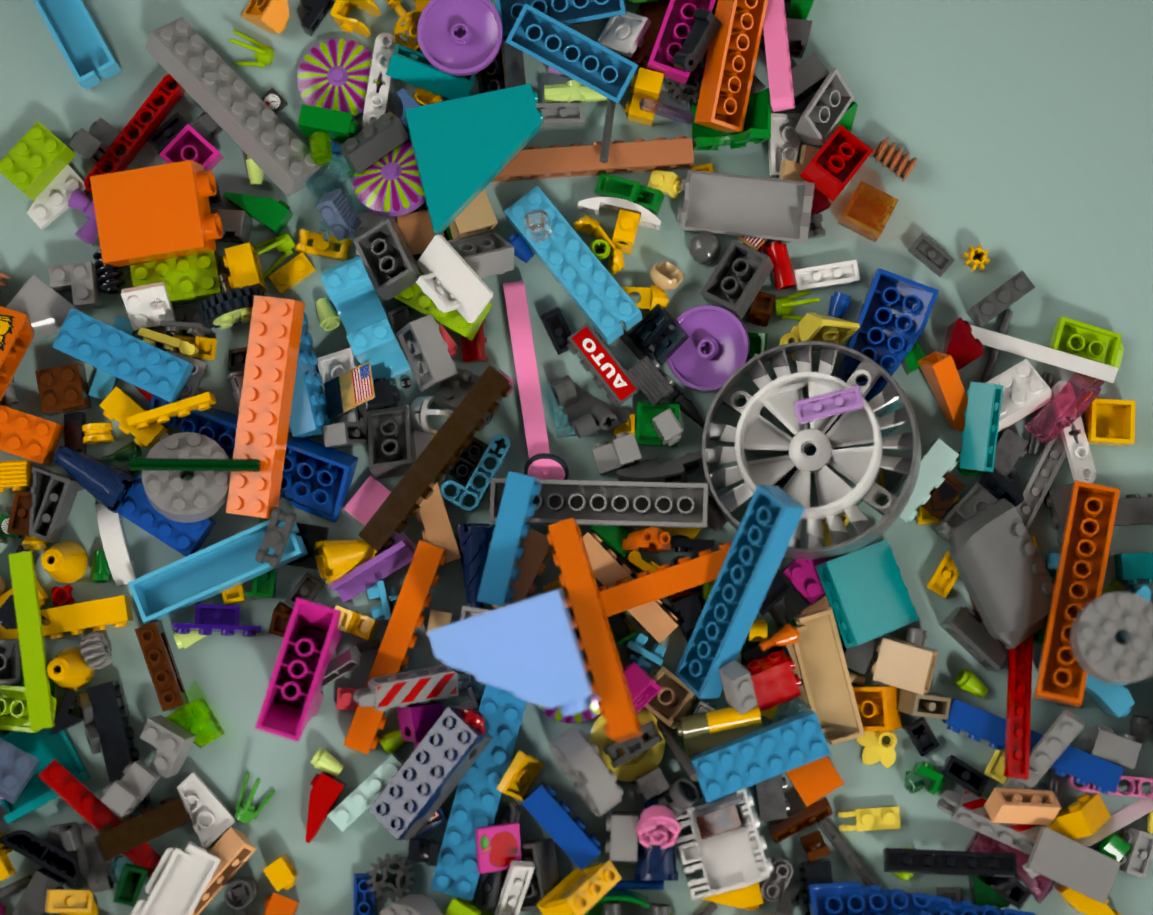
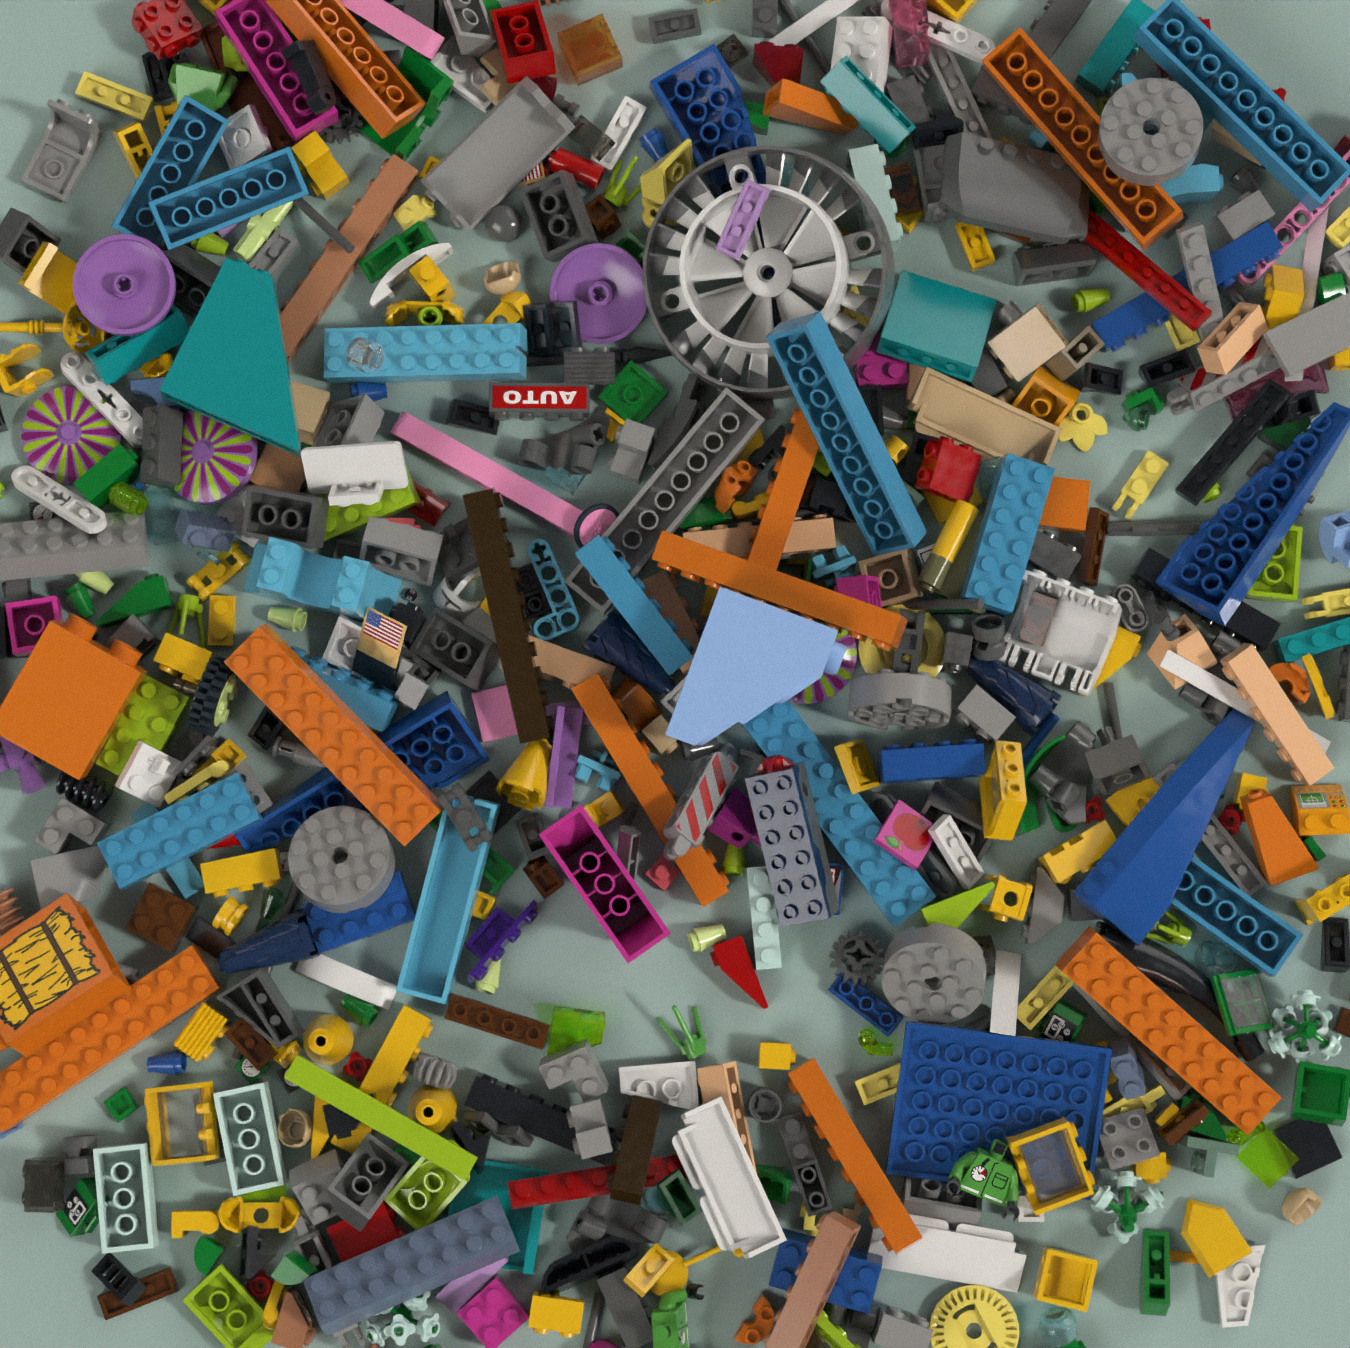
camera: 55 degrees left, 0 degrees up
(164, 413) = (264, 837): yellow plate -> none
(165, 464) = (339, 837): dark green axle -> none
(233, 170) = (80, 600): none -> green cone
(286, 120) = (44, 489): none -> white piece
(423, 850) = (858, 905): black slope -> none
(448, 590) = (637, 703): none -> orange cylinder
(537, 69) = (211, 244): none -> lime cone
(658, 827) = (1000, 673): bright pink cone -> none
(666, 111) = (349, 156): axle -> none
(667, 428) = (645, 385): light grey brick -> none
(738, 687) = (931, 503): light grey brick -> none
(785, 636) = (918, 427): orange cone -> none
(808, 259) = (590, 138): none -> clear smoke tile
(814, 846) = (1125, 552): reddish brown bracket -> none
(945, 306) = (732, 50): none -> clear smoke tile

